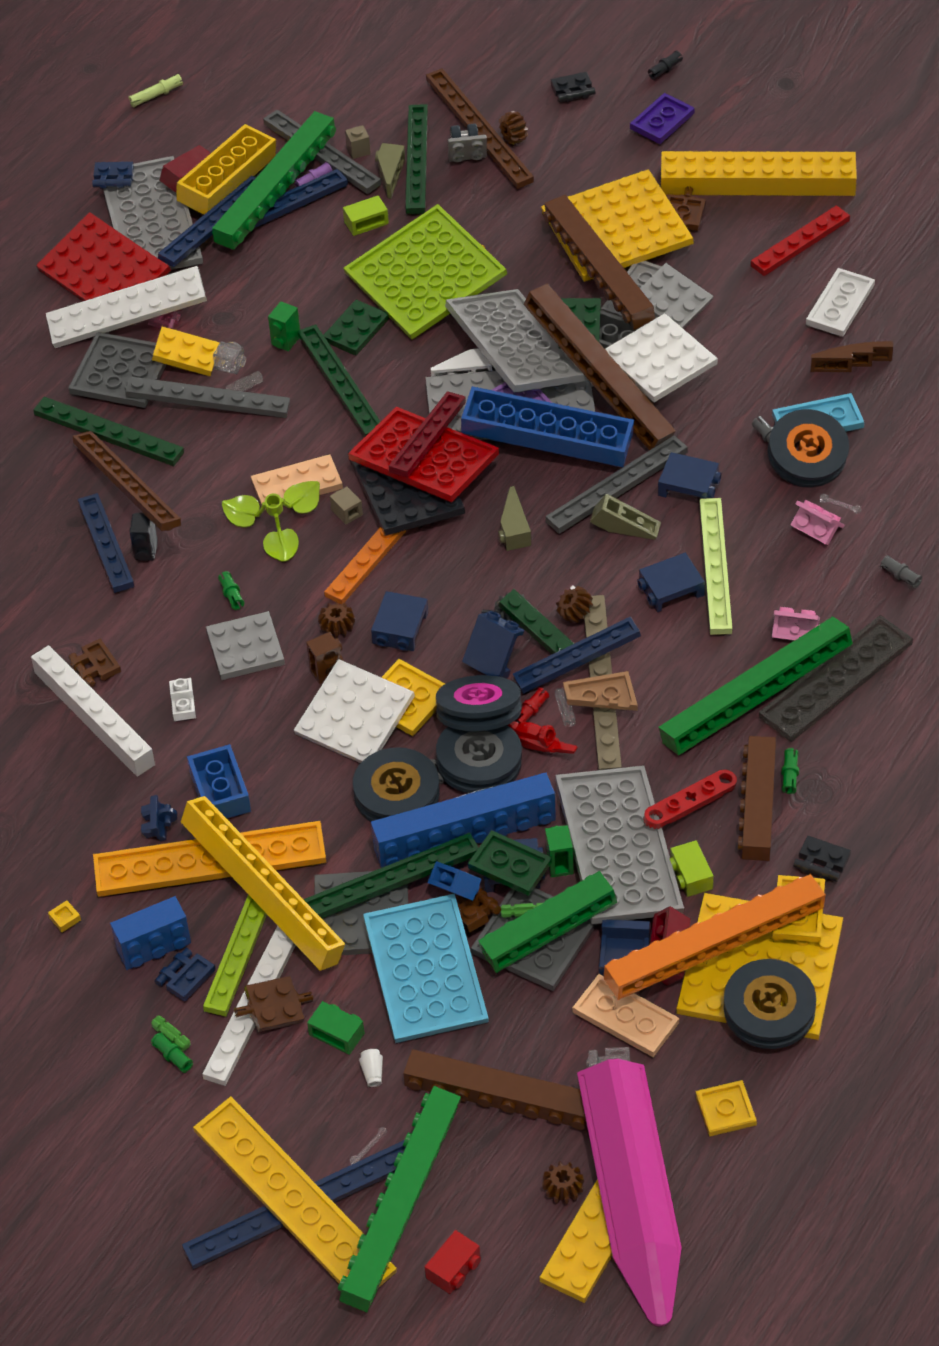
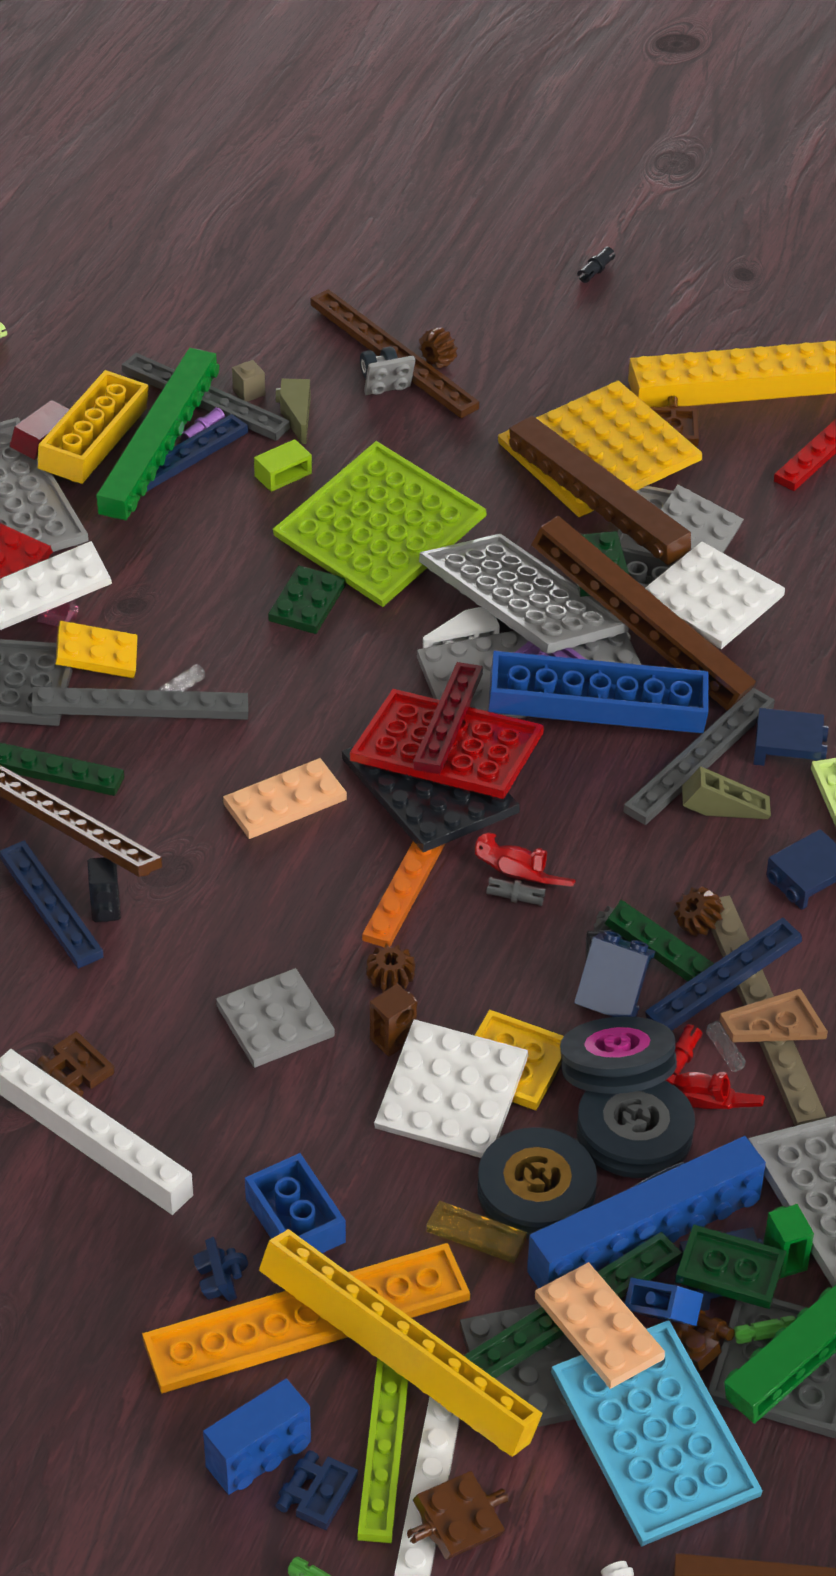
camera: 15 degrees left, 5 degrees down
(64, 916) = (122, 1429): yellow plate -> none
(182, 699) = (209, 1100): white slope -> none
(201, 229) = (81, 497): dark blue plate -> none
(229, 357) = (155, 651): clear brick -> none
(231, 590) = (237, 946): green pin -> none
(280, 544) = (284, 880): lime plant -> none
(284, 326) = (219, 605): green piece -> none
(336, 1027) = (554, 1537): green piece -> none
(339, 379) = (307, 665): dark green plate -> none
(342, 815) = (476, 1231): none -> clear yellow plate
(346, 505) = (360, 819): dark tan brick -> none
(399, 621) = (475, 960): dark blue panel -> none
(403, 890) = (599, 1325): none -> light nougat plate
(416, 159) = (327, 395): dark green plate -> none
(445, 573) = (516, 891): none -> dark grey pin
(452, 550) = (517, 861): none -> red animal
(514, 526) = (589, 823): olive slope -> none
(572, 87) = (492, 298): black plate -> none
(662, 118) = (612, 323): dark purple plate -> none

